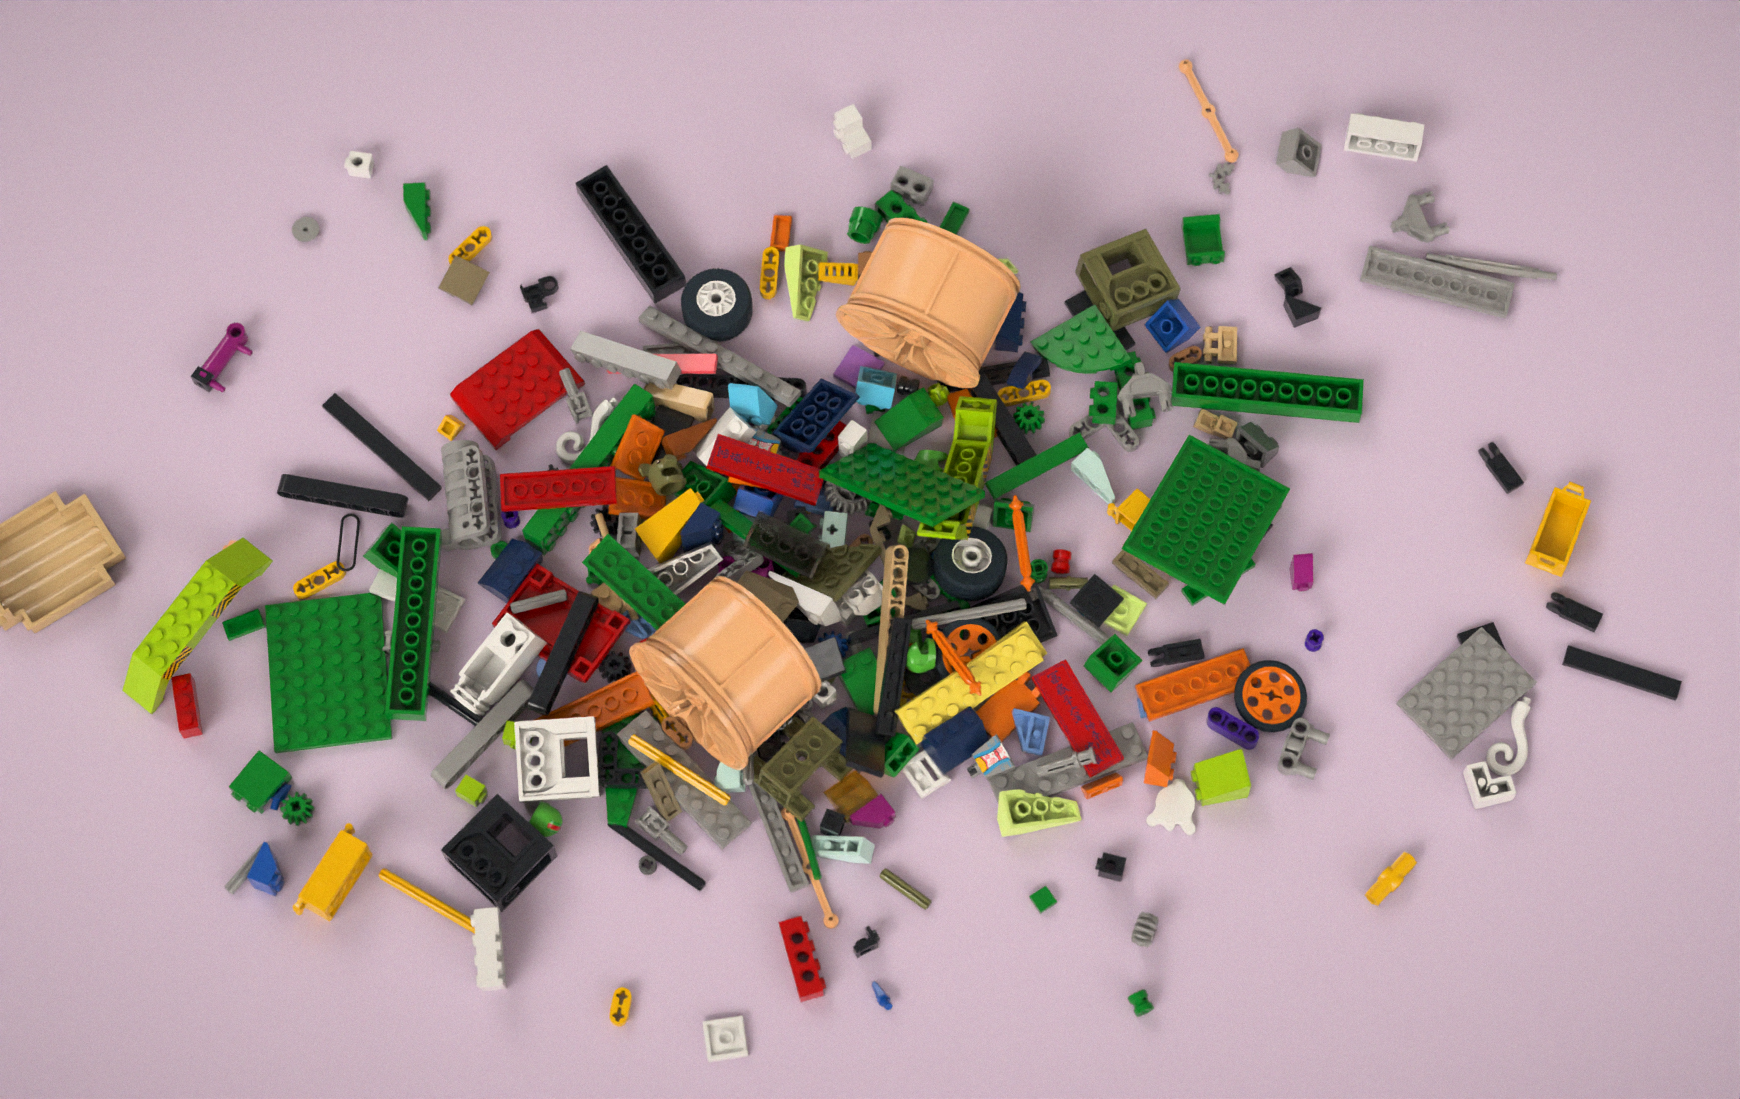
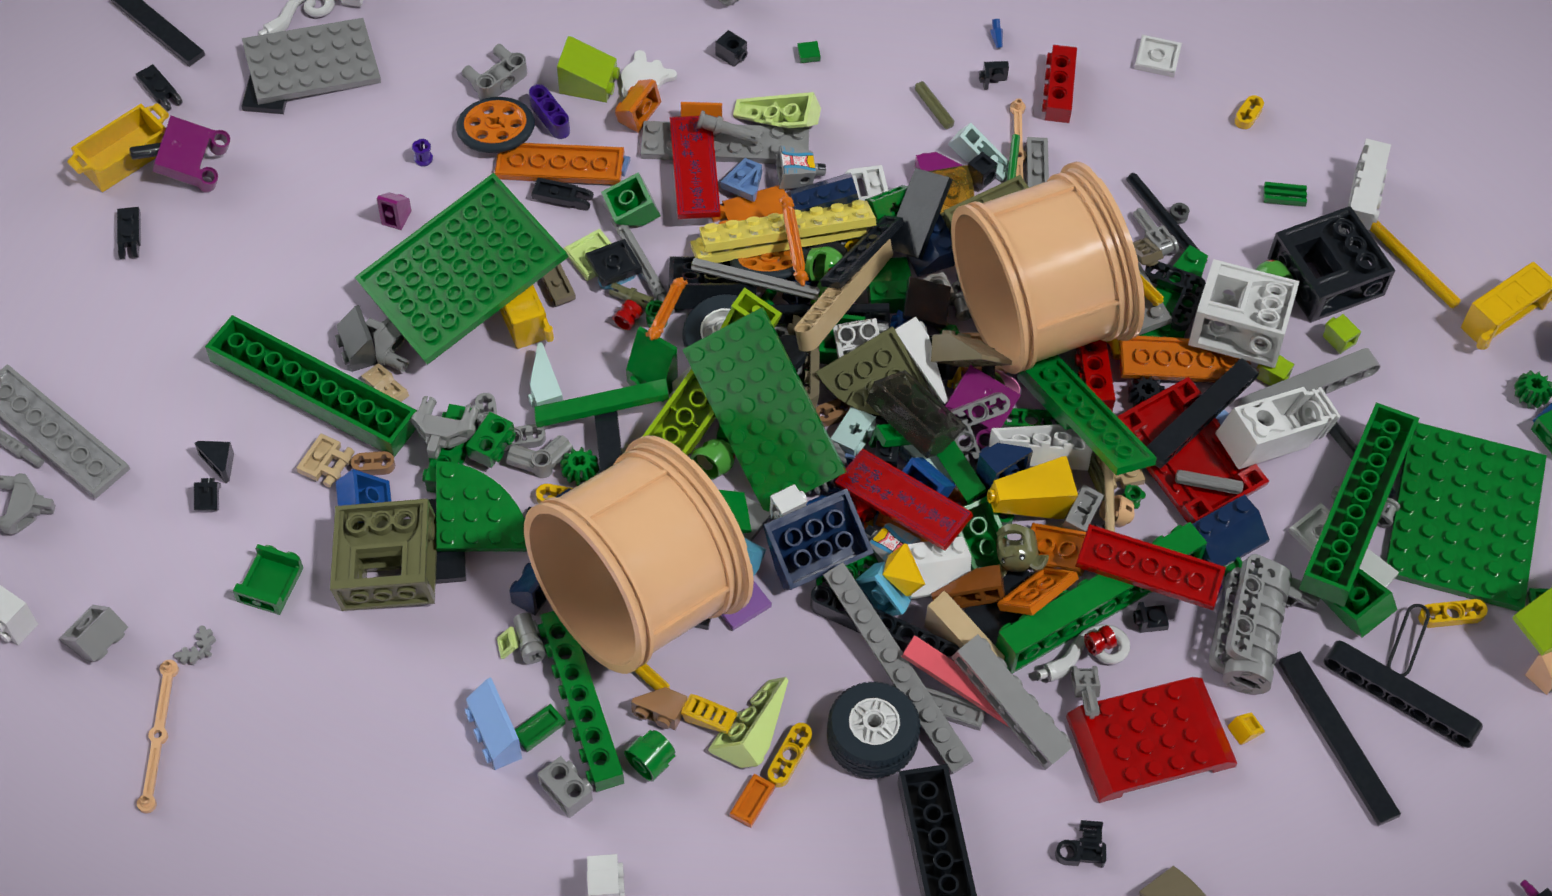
camera: 160 degrees left, 10 degrees down
(557, 921) = (1284, 191): none -> green tile
(578, 436) = (1100, 640): none -> red wheel
(743, 409) = (903, 571): none -> yellow slope
(981, 202) = (493, 725): none -> light blue slope
(1054, 418) = (529, 459): none -> light grey piece
(1501, 541) = (183, 151): none -> magenta piece

